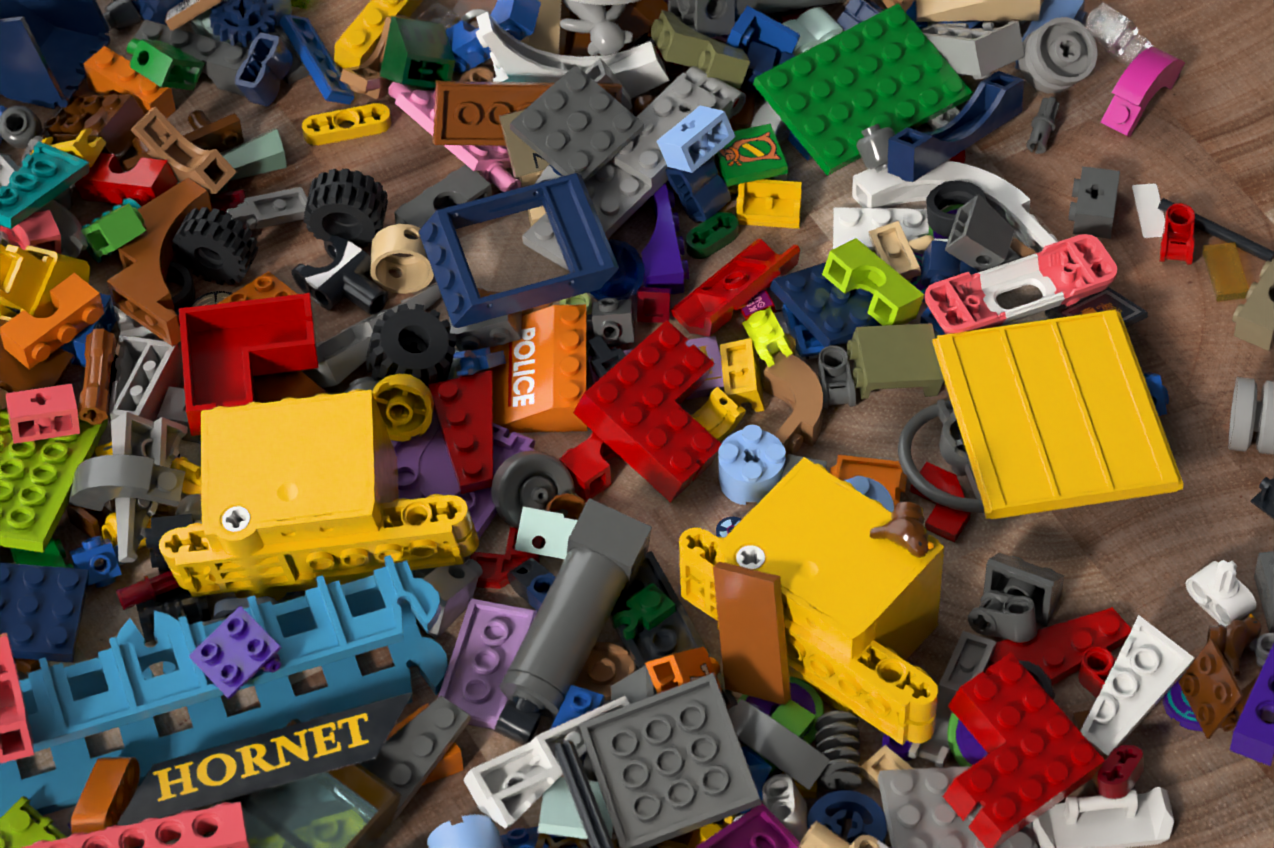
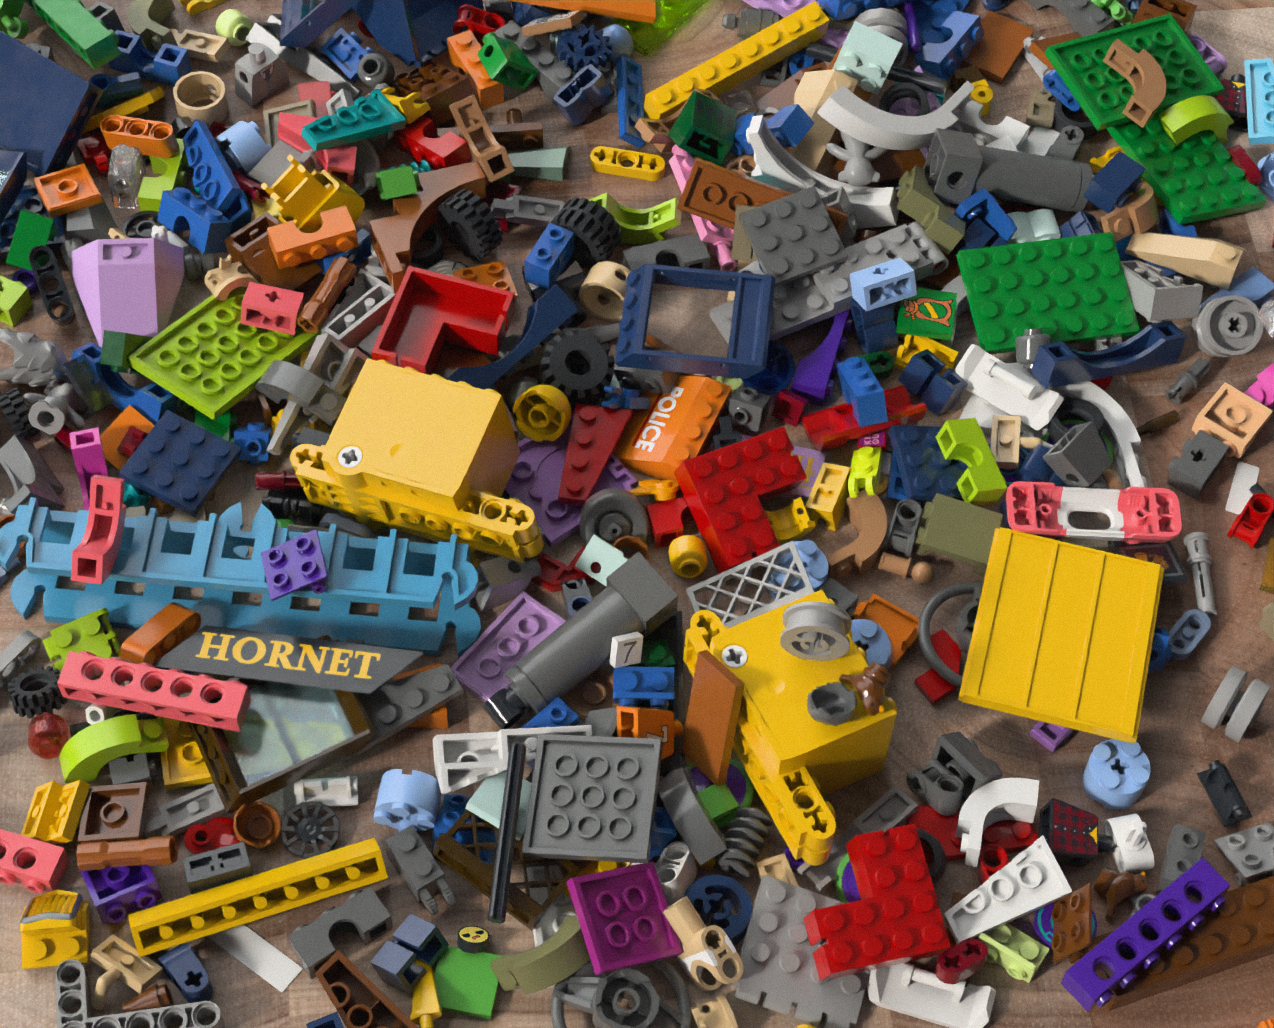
camera: 20 degrees right, 5 degrees up
(109, 33) = (479, 21): none -> red piece
(321, 246) = (549, 256): none -> blue brick
(350, 310) = (543, 317): none -> dark blue arch
(404, 176) = (642, 225): none -> lime arch
(567, 437) = (661, 489): none -> light orange plate
(620, 606) = (626, 649): none -> white tile
(627, 493) = (688, 556): none -> yellow head
(655, 638) = (644, 686): none -> blue bracket
(721, 252) = (863, 391): none -> blue arch
(739, 511) = (746, 568): none -> light grey fence
(774, 226) = (924, 379): none -> dark blue piece
(826, 494) = (816, 631): none -> light grey wheel
(869, 198) = (1007, 388): none -> white piece
(875, 416) = (921, 572): none -> medium nougat pin
(878, 560) = (831, 704): none -> dark grey hair
(1036, 176) = (1158, 423): none -> dark brown pin
(1072, 605) = (991, 803): none -> white arch
(1086, 520) = (1050, 735): none -> medium lavender tile
(1107, 144) = (1232, 419): none -> light nougat plate
(1149, 299) = (1200, 563): none -> light grey pin
(1162, 604) = (1072, 834): none -> black torso
(1165, 744) = (1014, 951): none -> yellowish green bracket
(1173, 374) = (1185, 636): none -> sand blue plate
(1174, 531) = (1116, 774): none -> light blue brick

